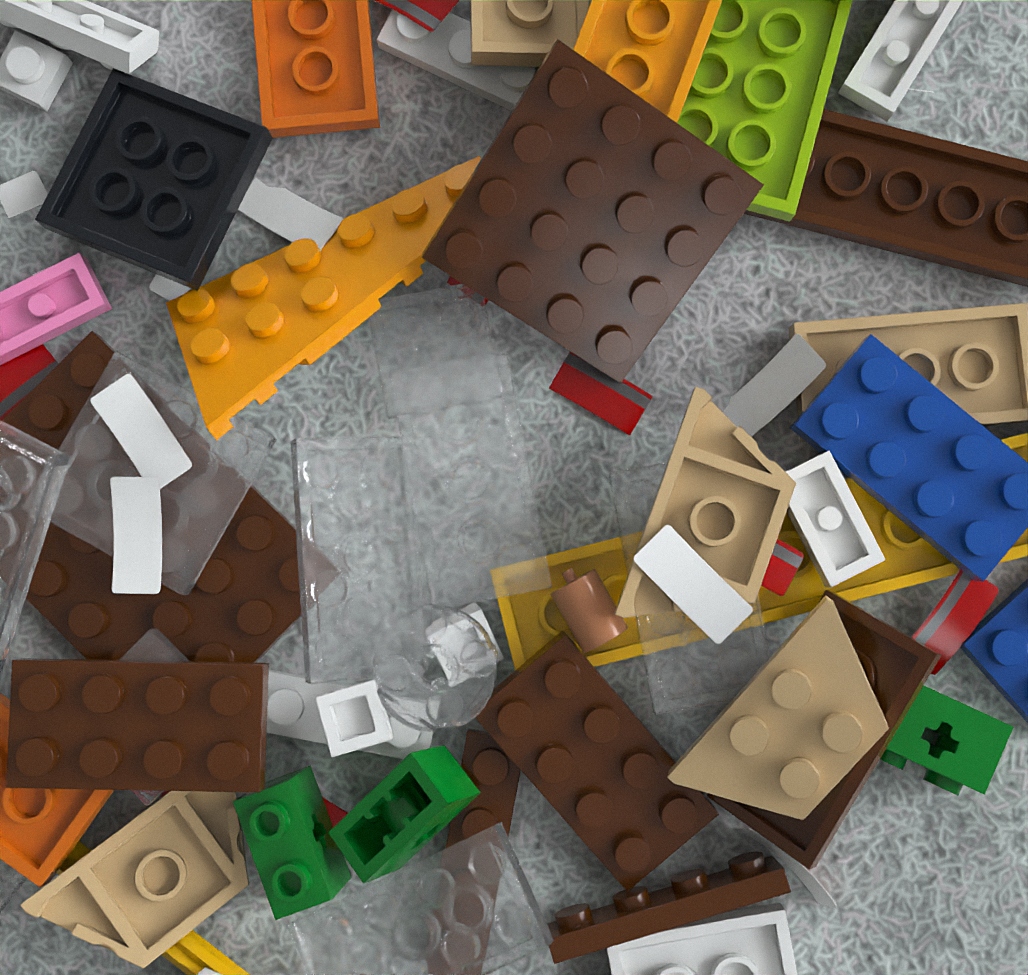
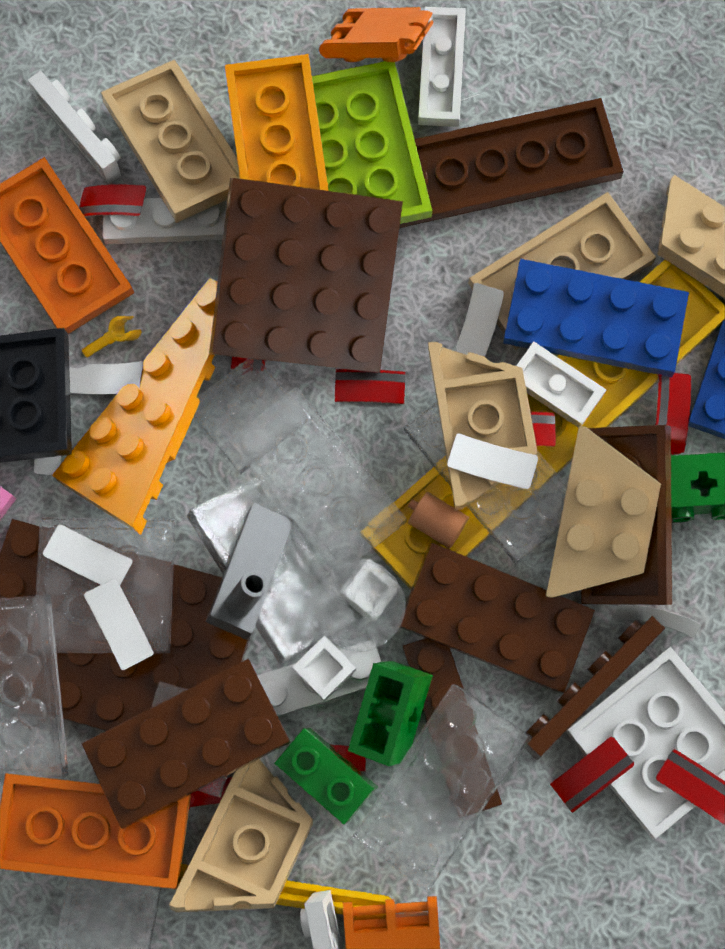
camera: 30 degrees left, 10 degrees down
(324, 555) = (249, 571): none -> piece
(330, 166) = (115, 333): none -> yellow hand

